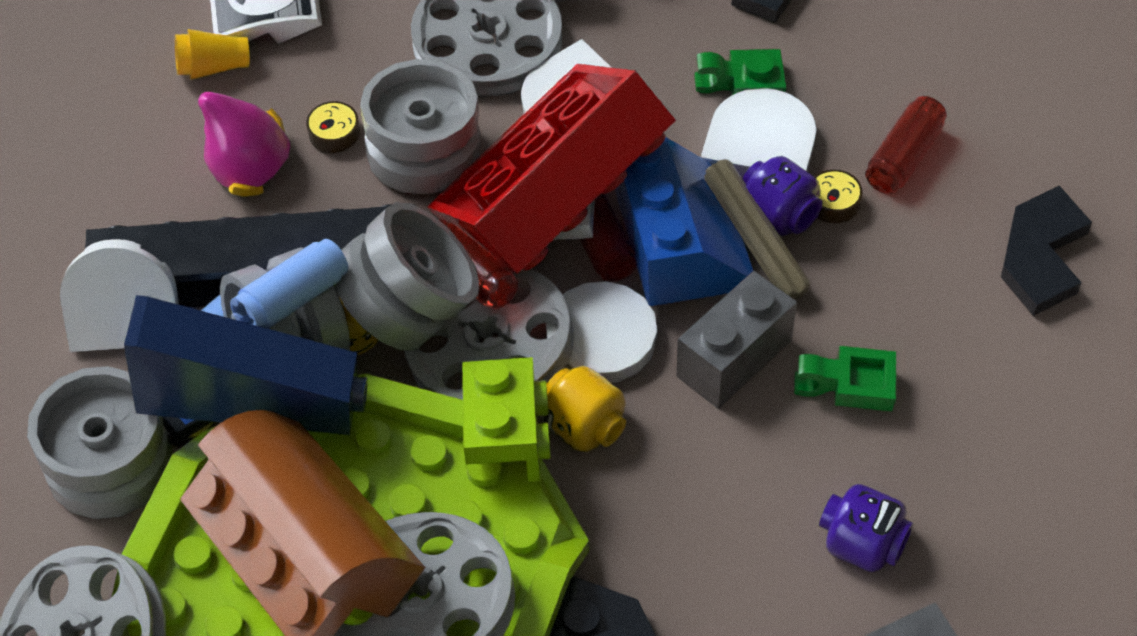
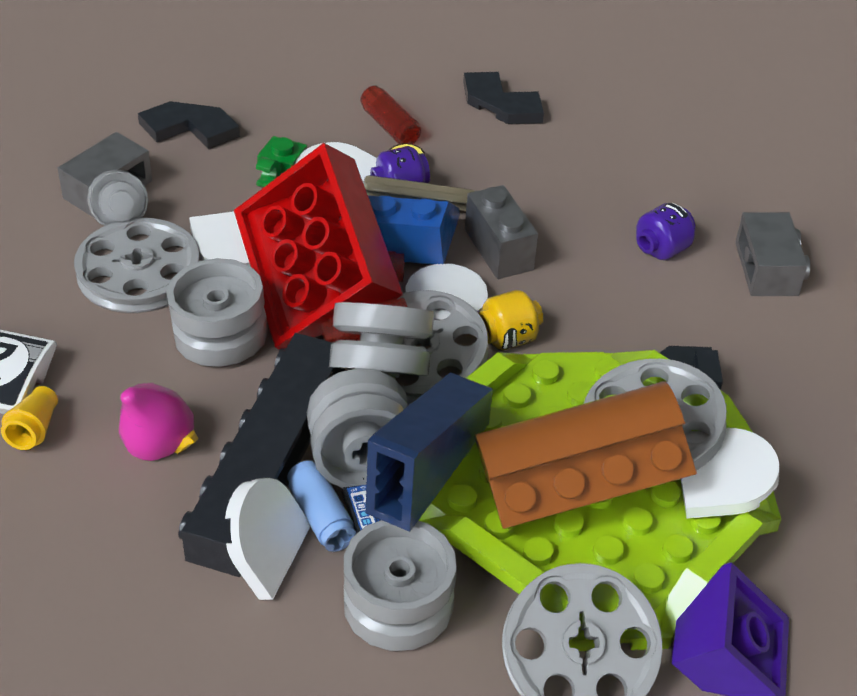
camera: 70 degrees left, 10 degrees down
(290, 284) = (380, 377): light blue piece -> none
(333, 126) = (162, 369): tile -> none
(502, 414) = (521, 335): lime bracket -> none
(857, 375) = (553, 196): green plate -> none

